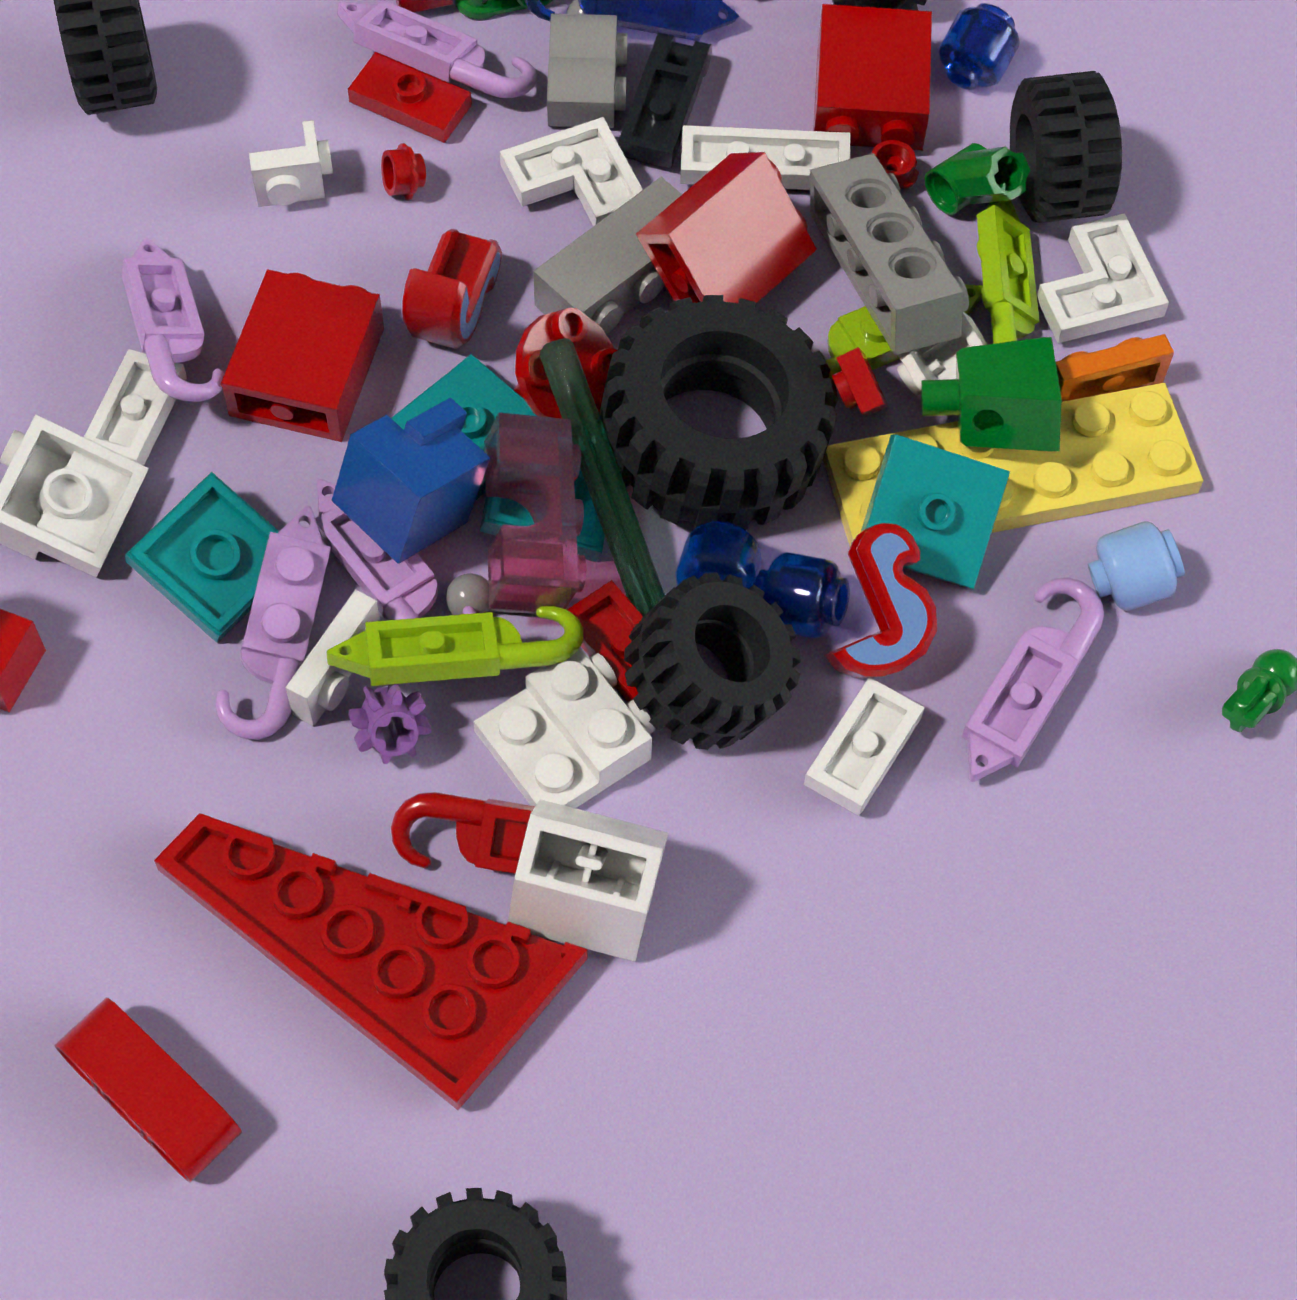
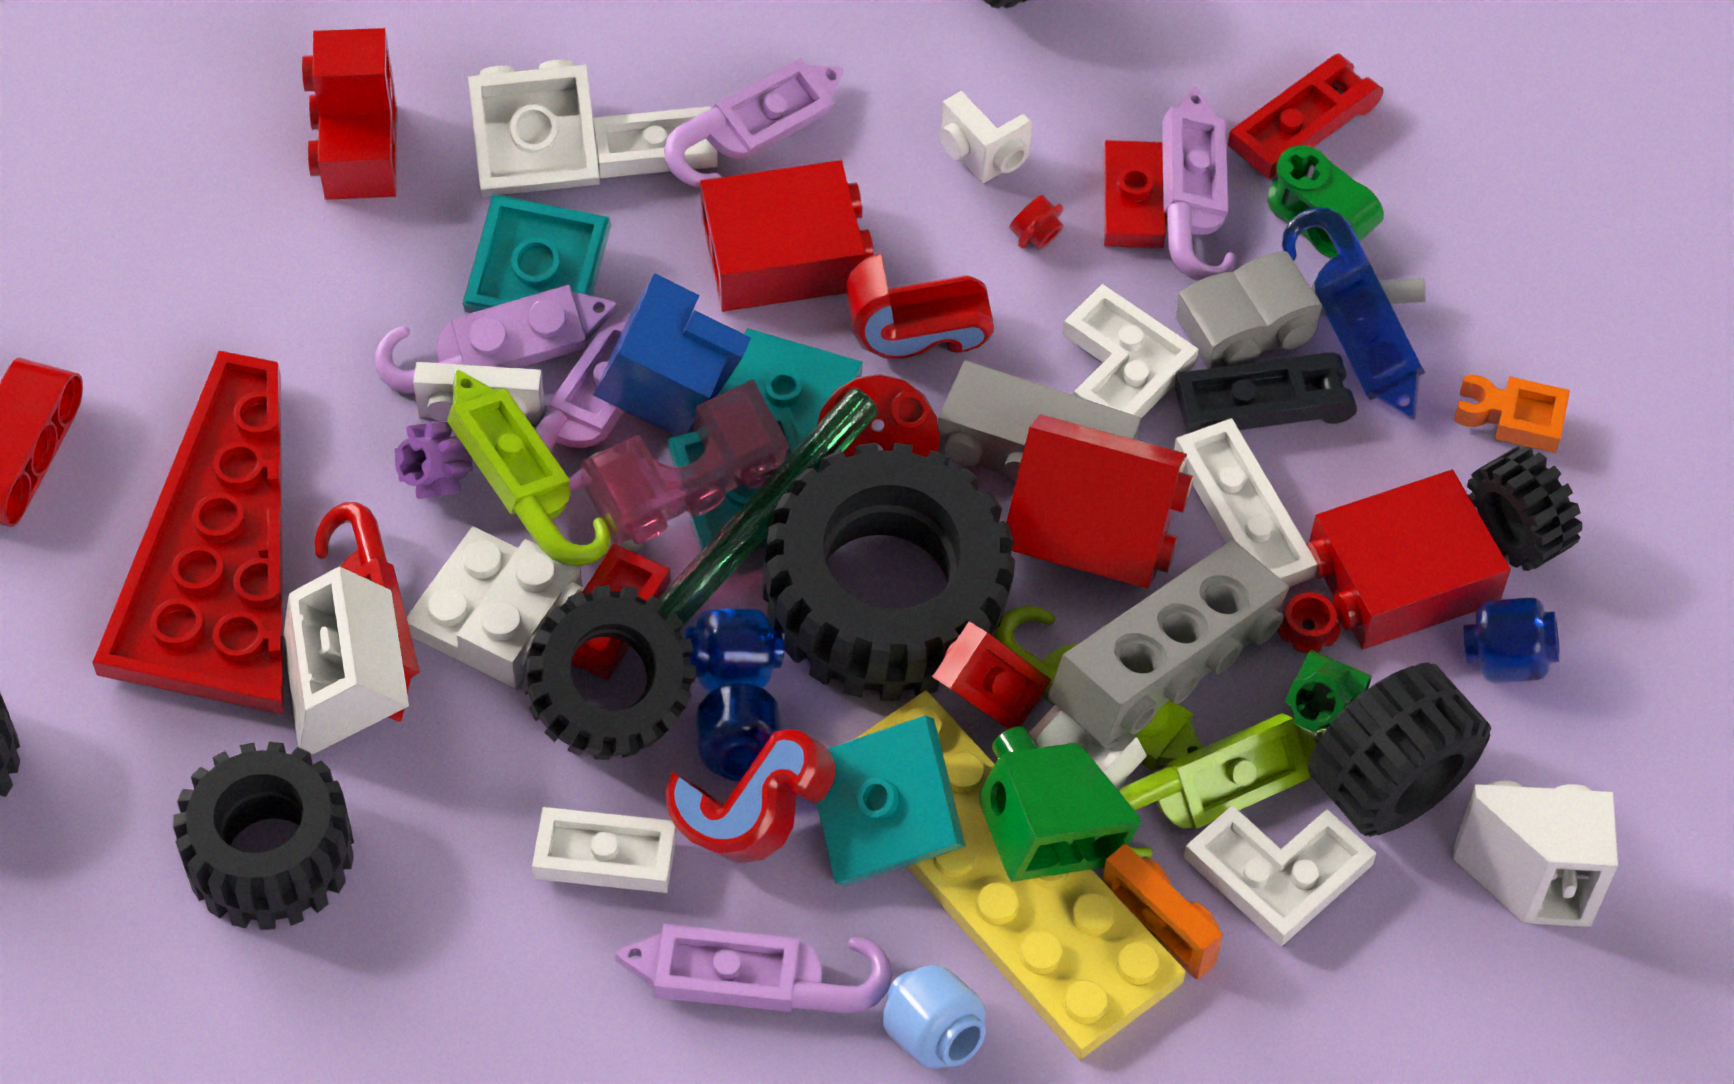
camera: 65 degrees right, 5 degrees down
(736, 961) = (255, 789): none -> black tyre
(1185, 105) = (1540, 849): none -> white slope

